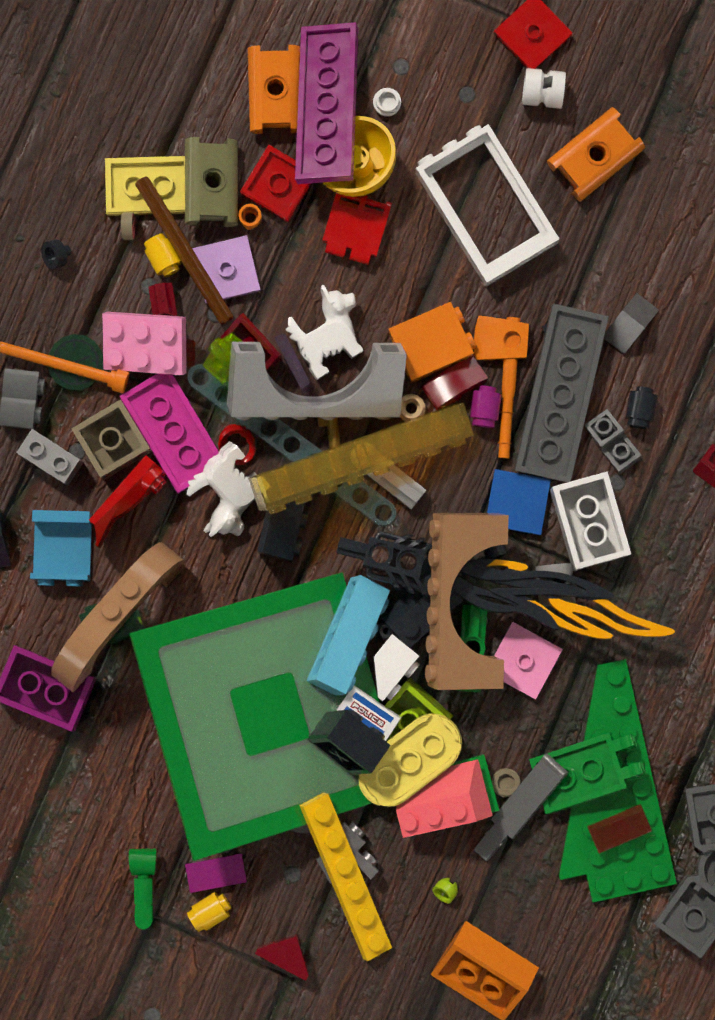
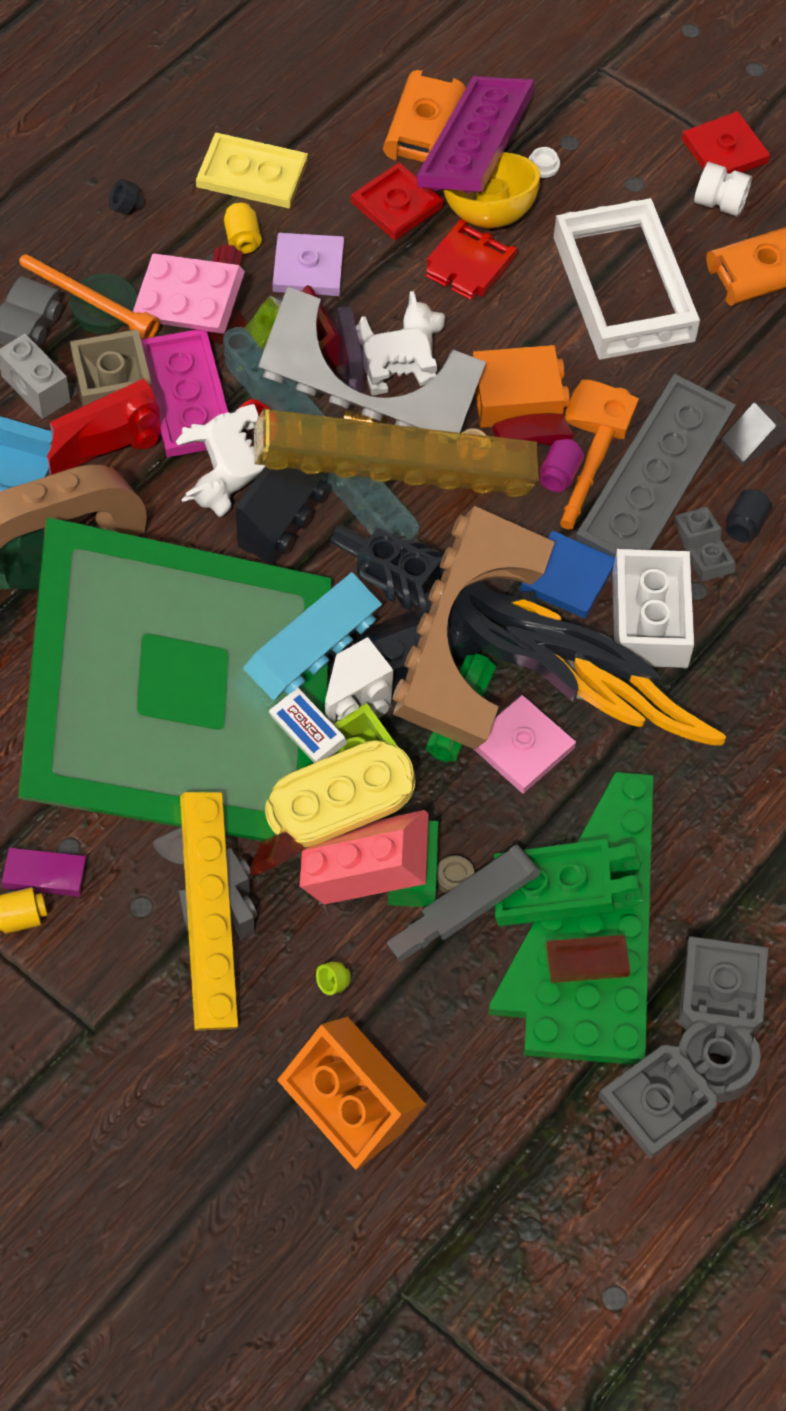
camera: 15 degrees right, 25 degrees down
(128, 226) = (215, 193): dark tan tile -> none
(184, 250) = (266, 221): reddish brown axle -> none
(217, 162) = (322, 178): olive piece -> none
(250, 209) = (354, 220): orange hose -> none
(285, 954) = (94, 990): dark red slope -> none
(349, 741) = (269, 737): black brick -> none
(377, 819) = (274, 852): none -> clear red slope
(400, 486) = (427, 510): light grey piece -> none

